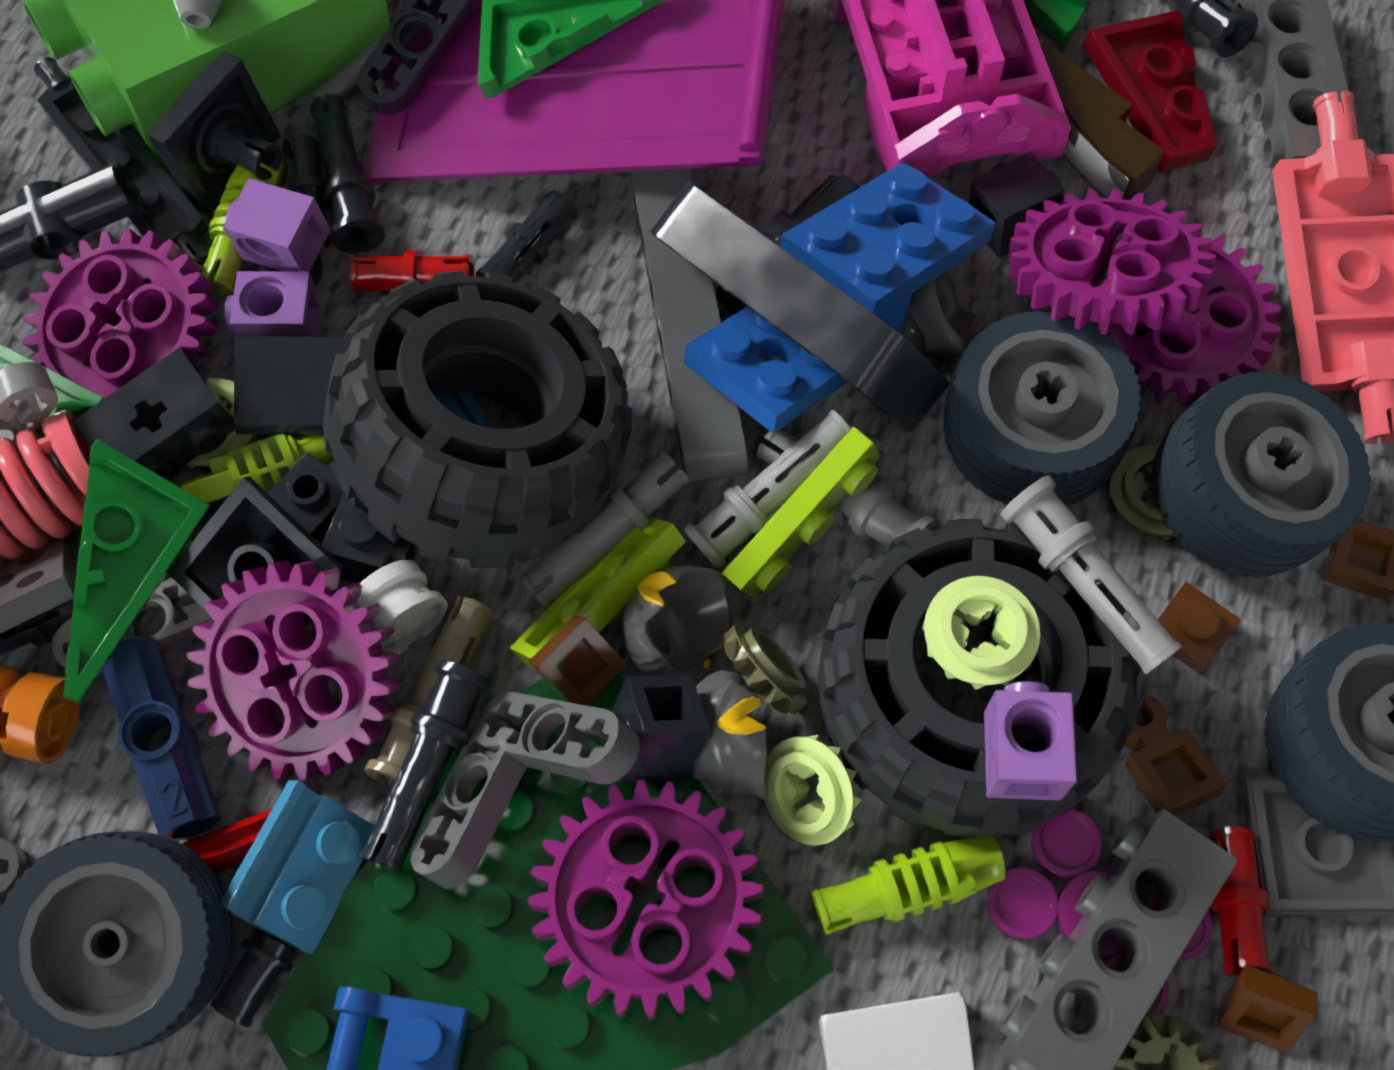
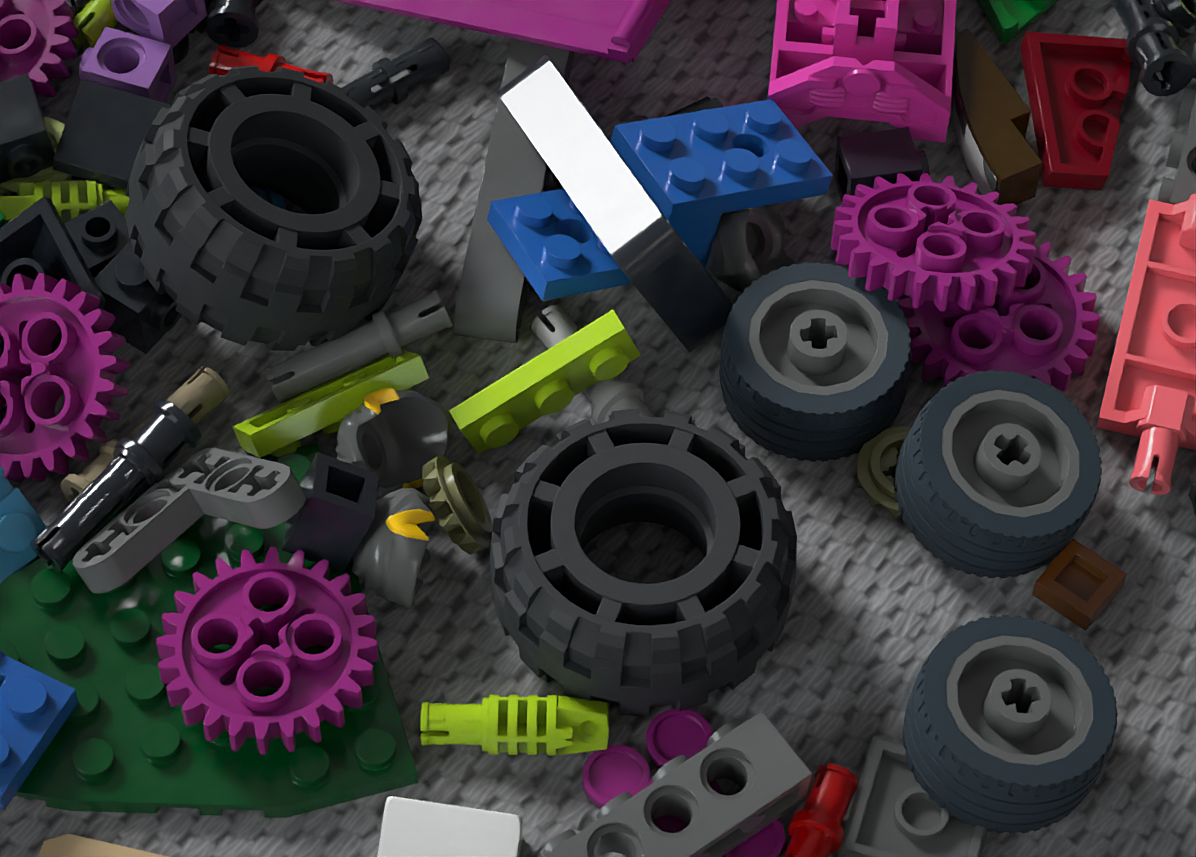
camera: 15 degrees right, 10 degrees down
(404, 603) = (152, 353): white wheel -> none
(577, 662) = (285, 438): reddish brown plate -> none
(740, 502) = (493, 362): light grey pin -> none
(787, 789) = (438, 616): yellowish green gear -> none
(972, 601) = (648, 474): yellowish green gear -> none
(1021, 773) = (634, 617): medium lavender brick -> none
(1149, 644) = (752, 455): light grey pin -> none
(1170, 768) = (801, 701): reddish brown plate -> none
(1198, 626) = (884, 598): reddish brown plate -> none

